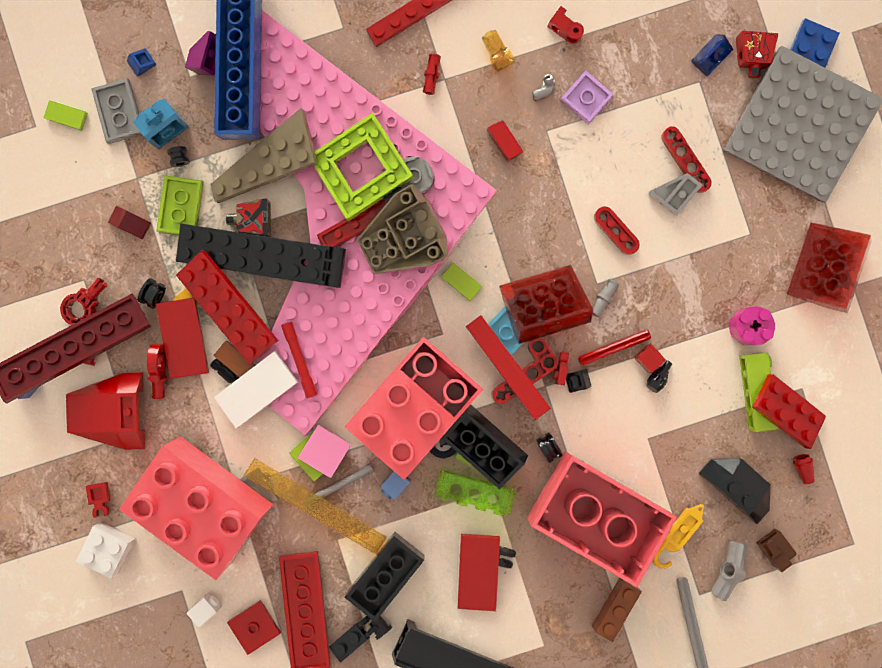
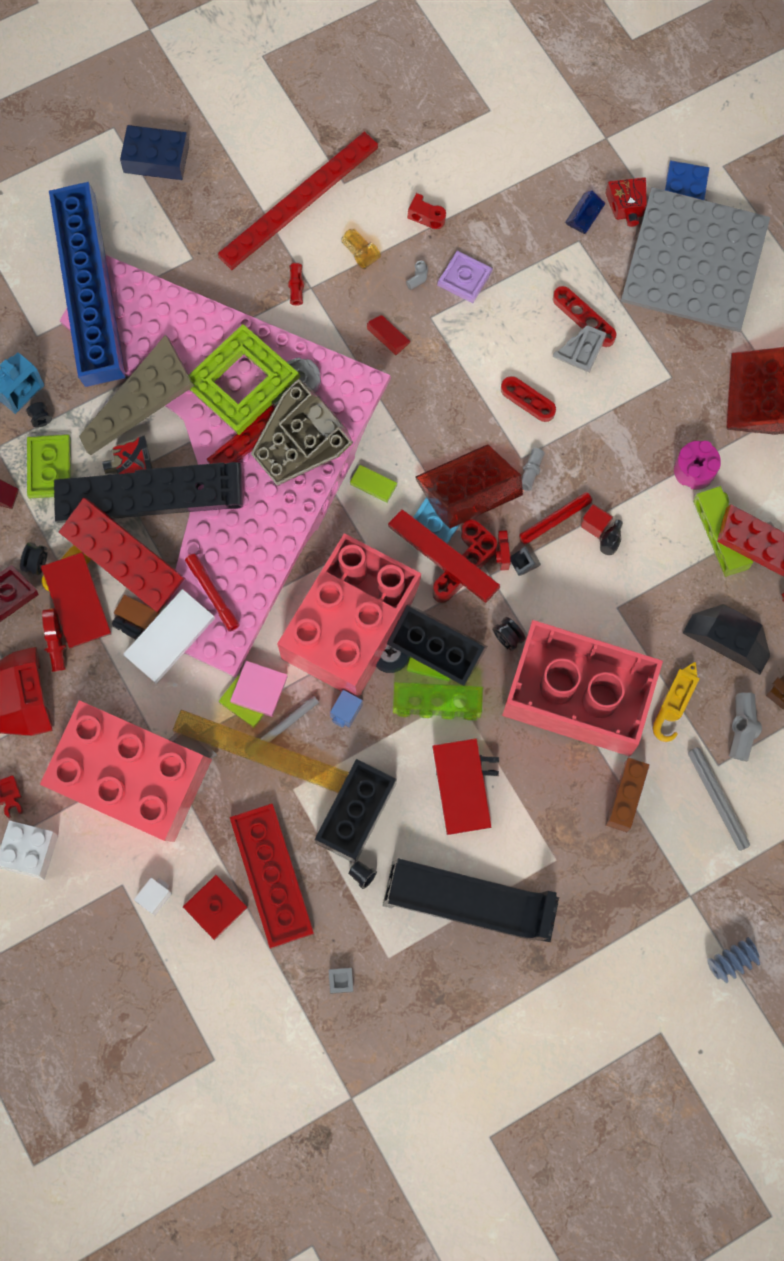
camera: 10 degrees left, 15 degrees down
(202, 55) = (50, 308): magenta slope -> none
(351, 640) = (333, 892): black hinge -> none

